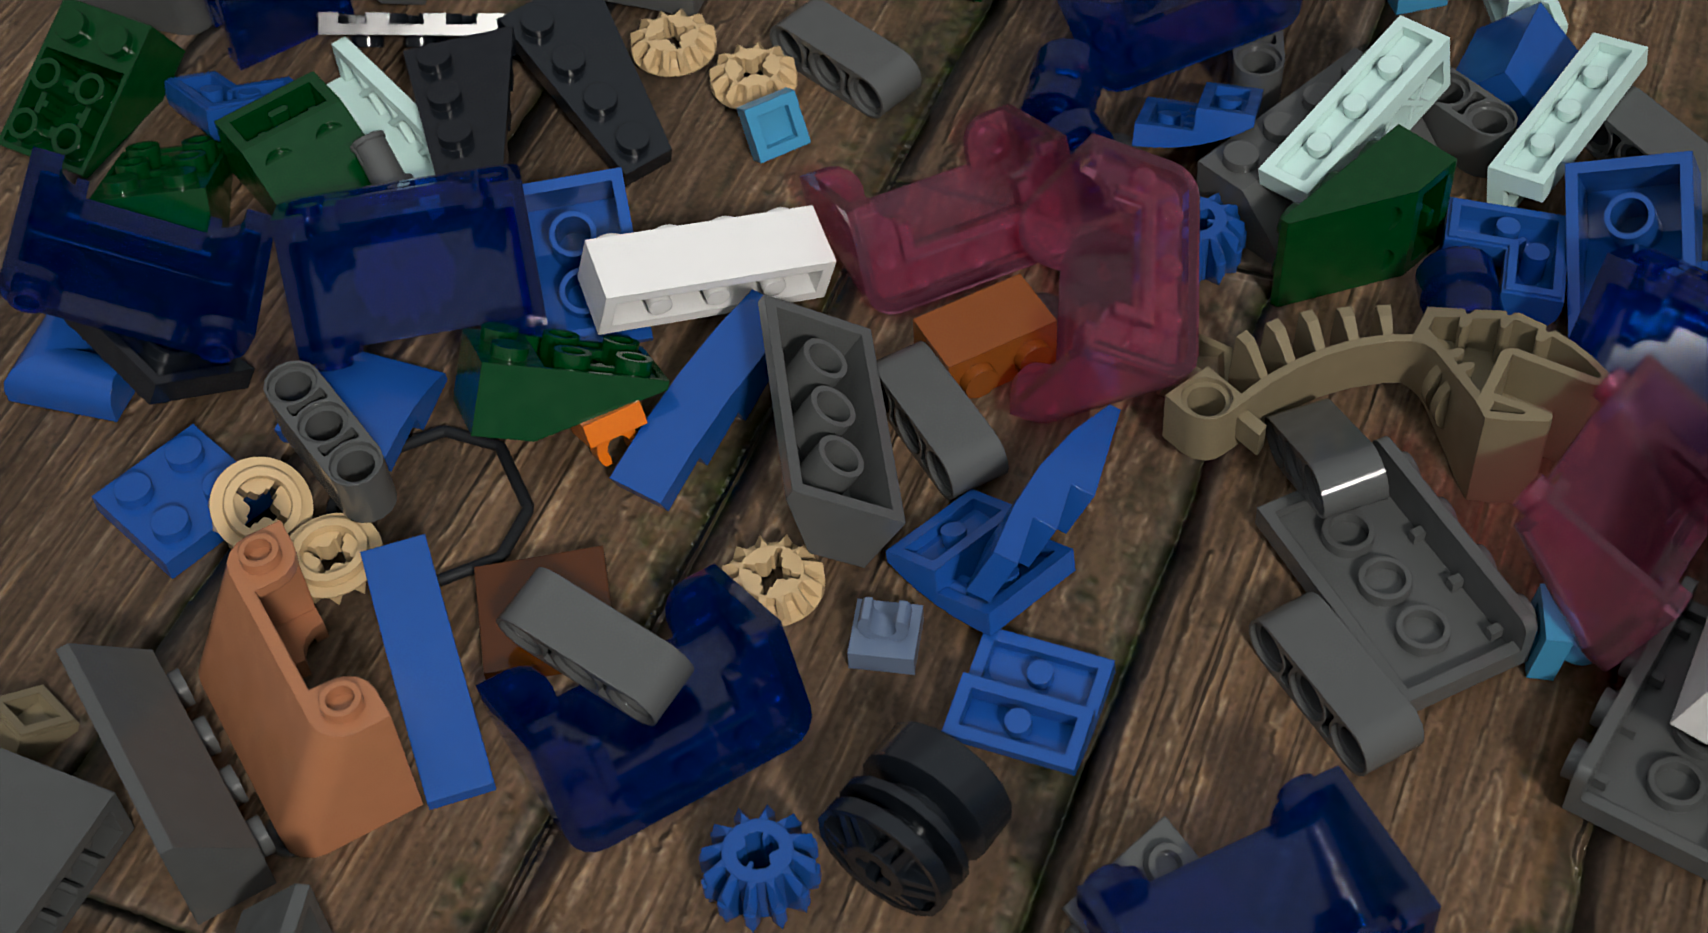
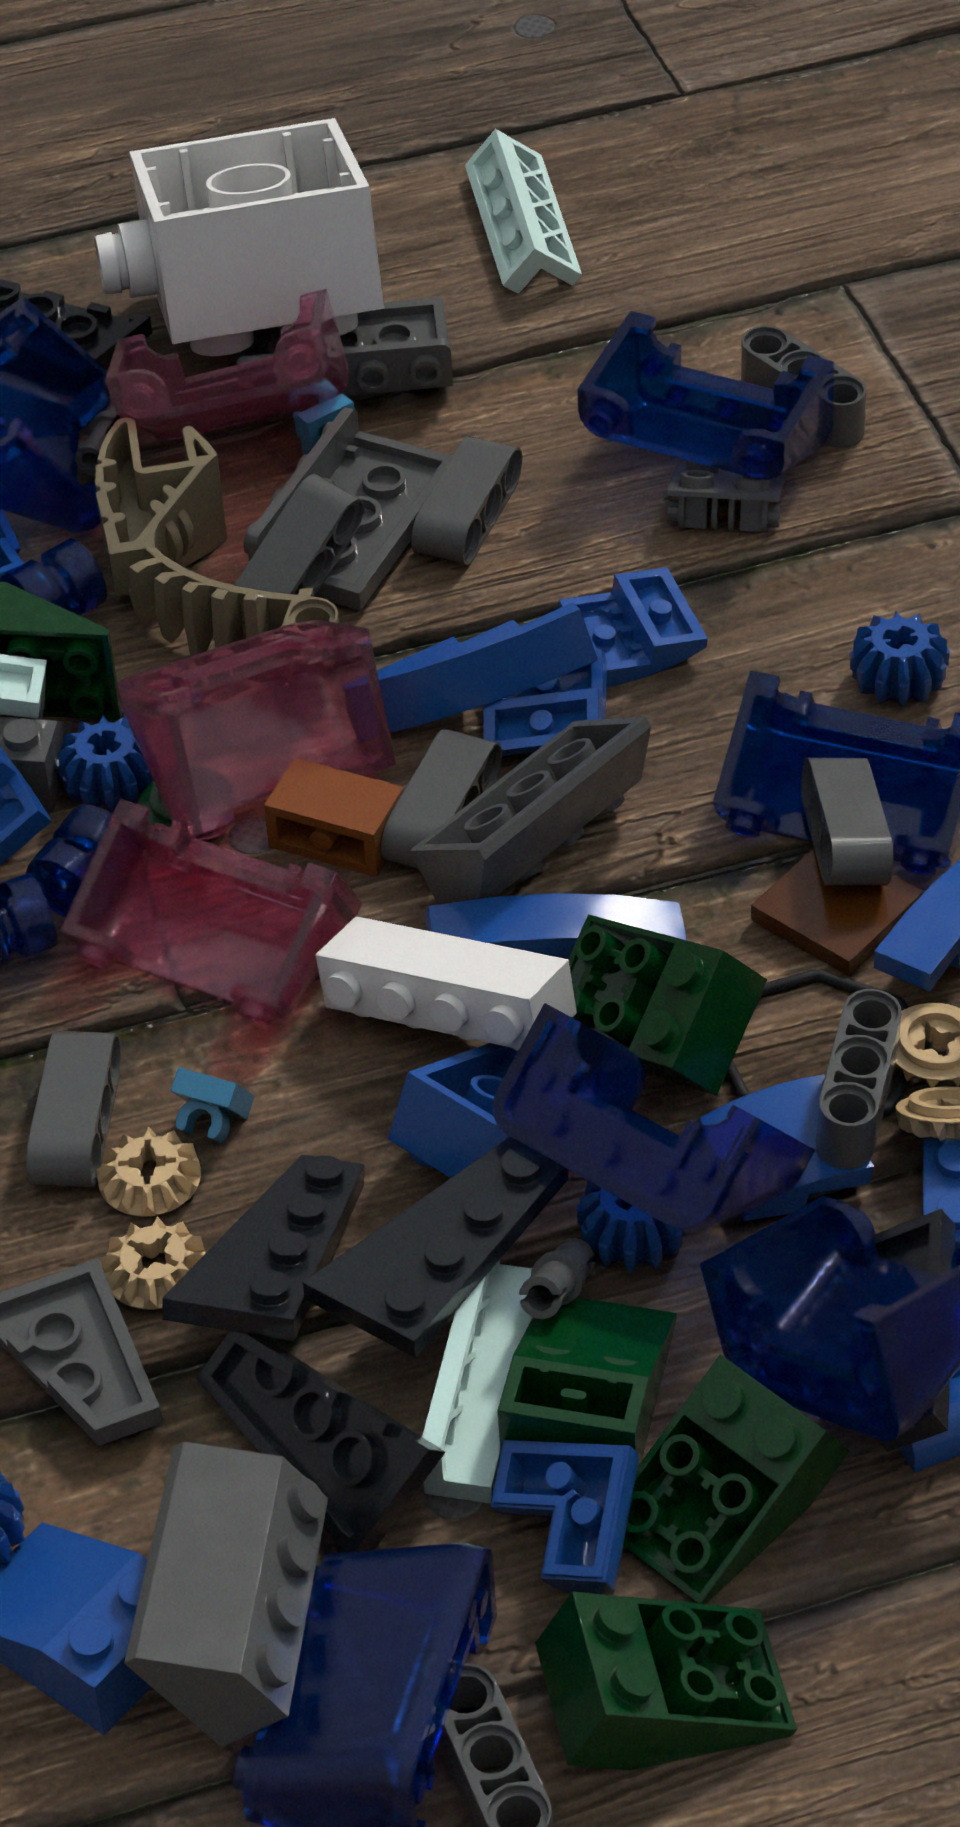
camera: 130 degrees left, 5 degrees down
(789, 597) = (664, 822): tan gear -> none
(885, 636) = (669, 724): sand blue tile -> none
(916, 818) = (797, 583): black wheel -> none

